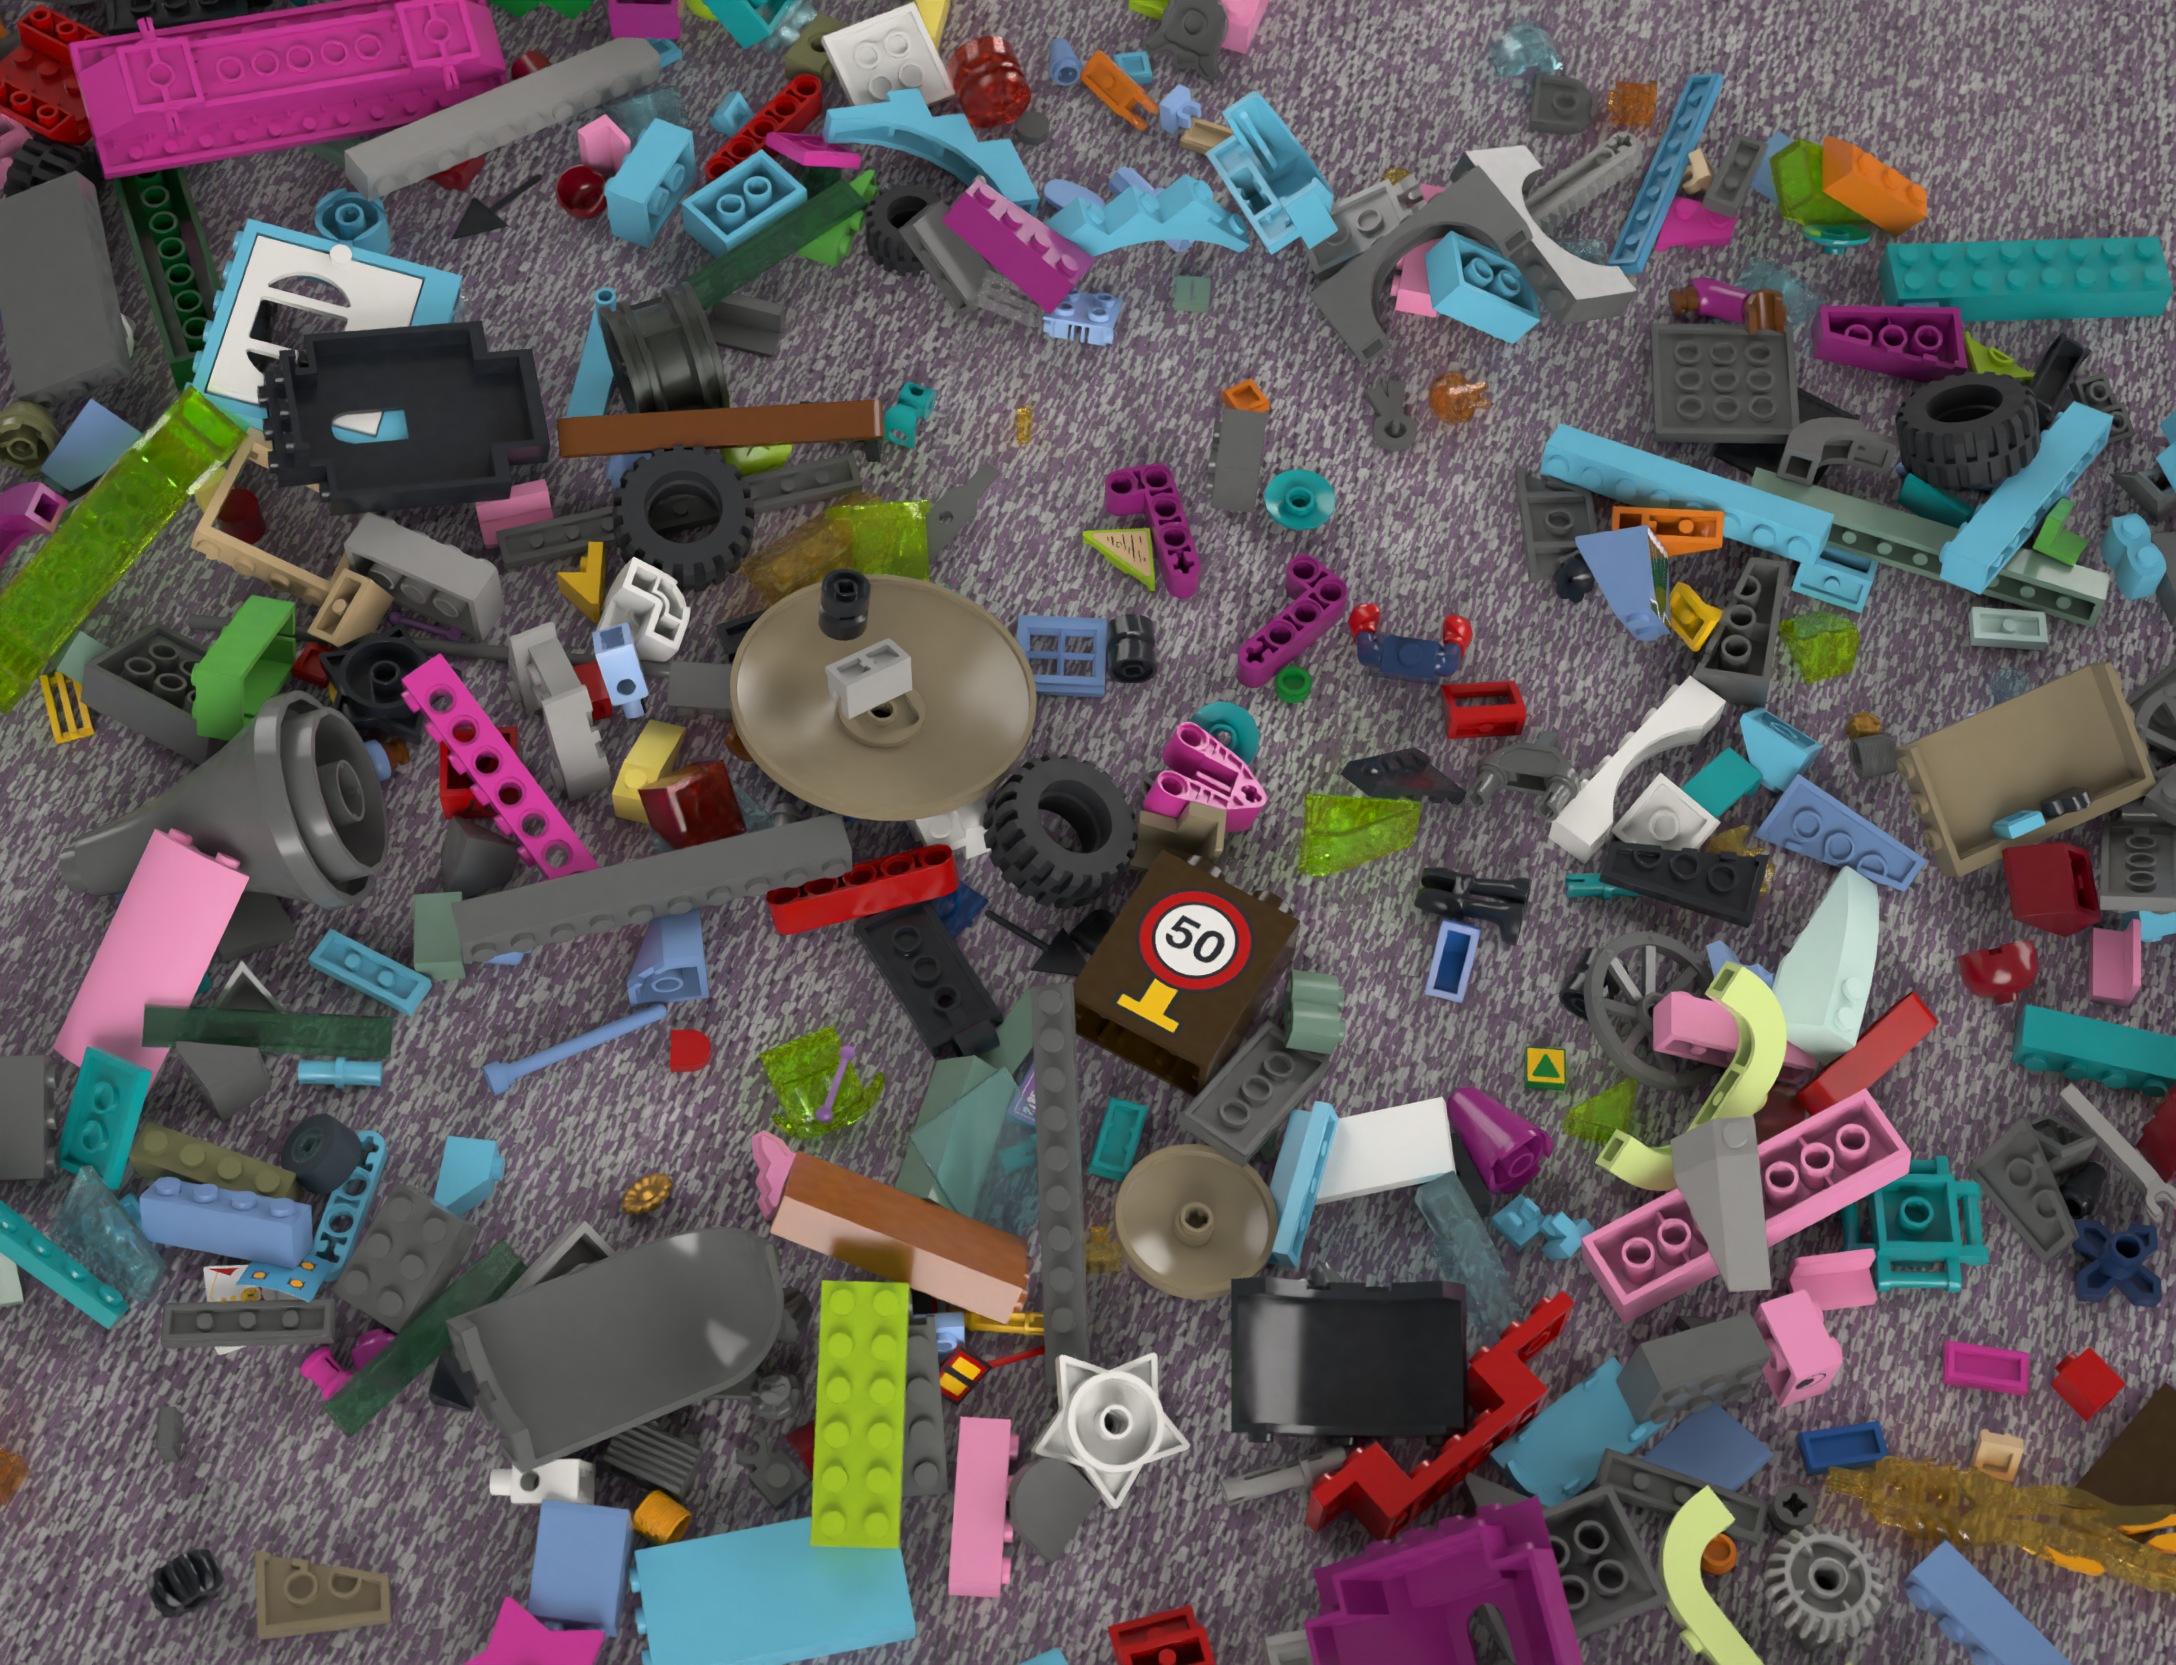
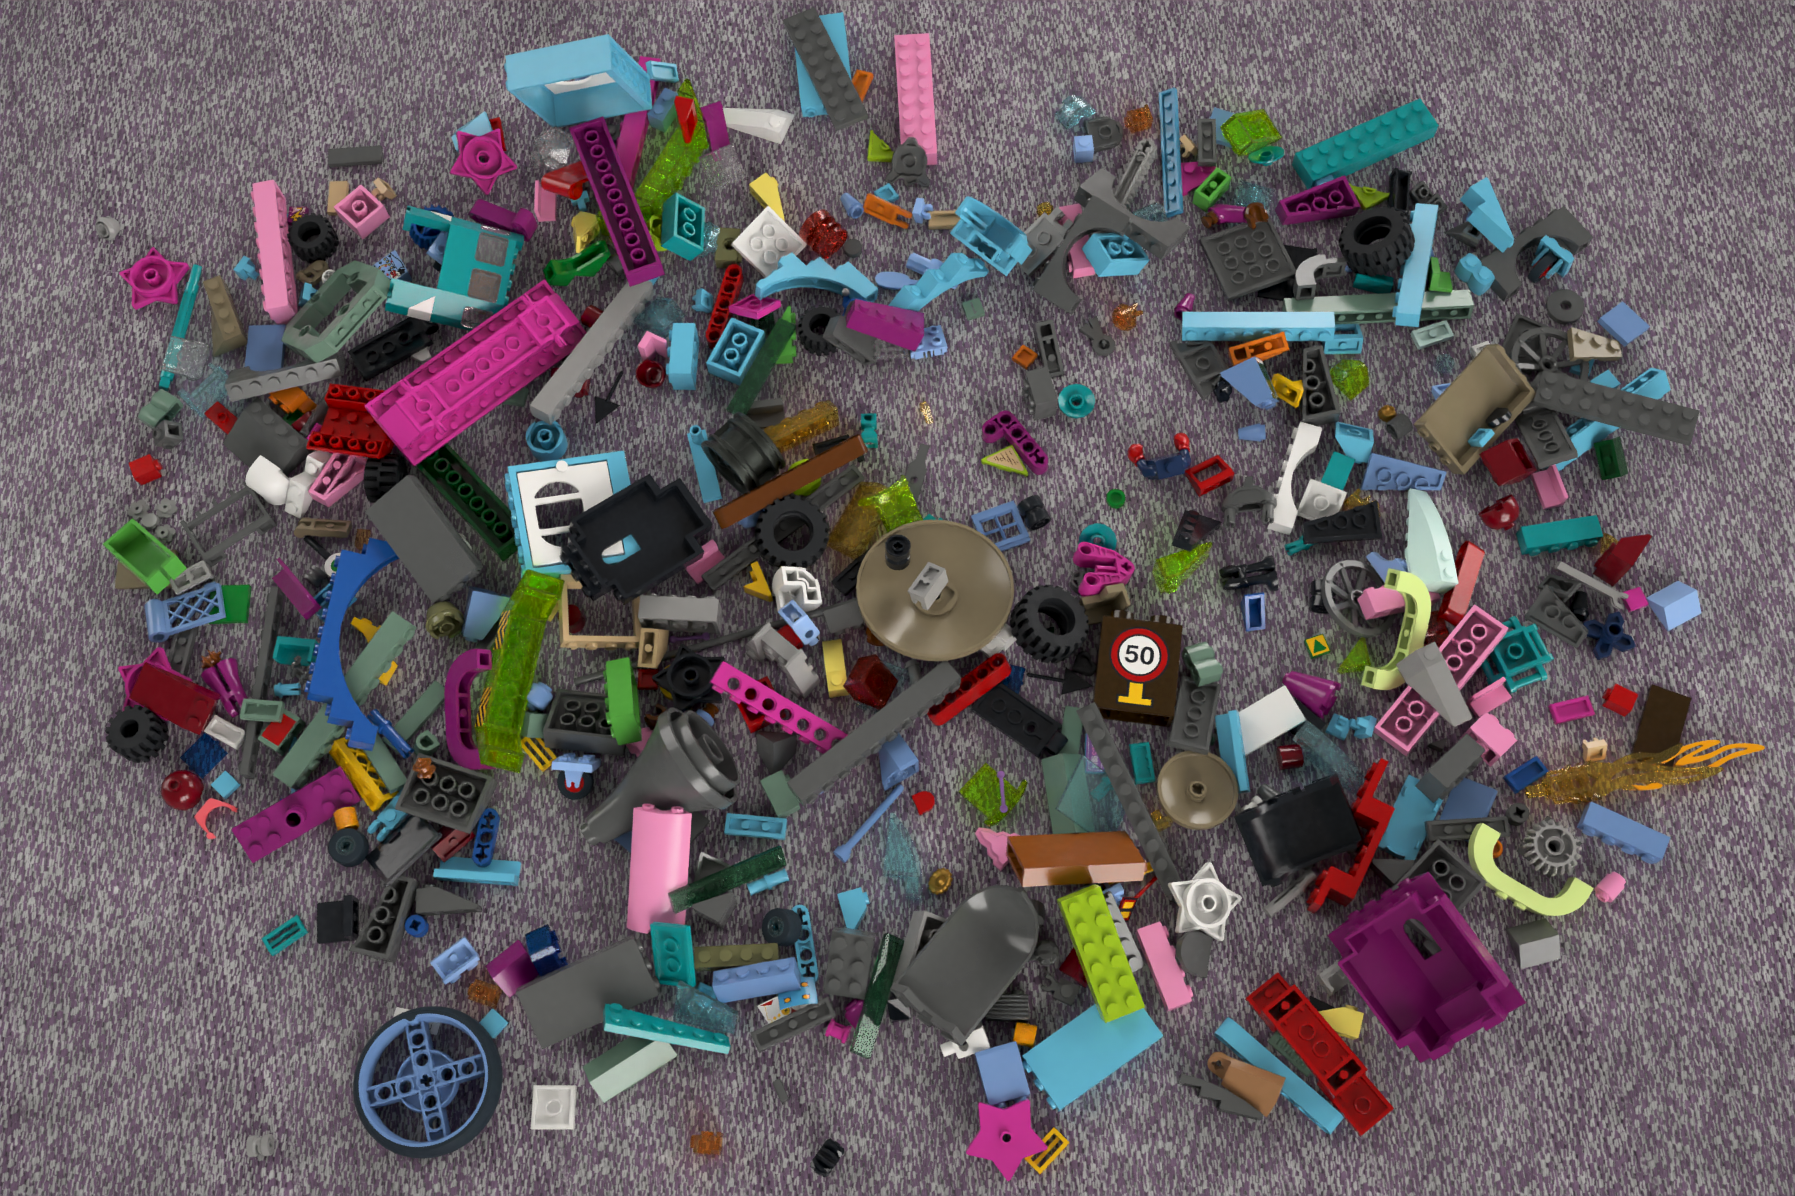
camera: 15 degrees left, 10 degrees up
(103, 769) = (576, 776): none -> plate
(114, 617) = (539, 696): none -> medium blue head
(315, 1598) = (887, 1137): dark tan wing -> none
(597, 1131) = (902, 859): none -> clear light blue slope
(793, 367) = (804, 426): none -> clear yellow slope
(1260, 656) = (1101, 471): magenta beam -> none
(1292, 397) = (1048, 346): none -> dark grey slope
(1399, 1235) = (1289, 756): none -> dark red piece
(1510, 113) = (1083, 149): none -> light blue brick
(1576, 416) = (1184, 305): none -> magenta cone
(1596, 667) = (1252, 433): none -> medium blue cone
(1709, 251) = (1211, 189): none -> bright green brick
(1871, 187) = (1275, 124): orange slope -> none

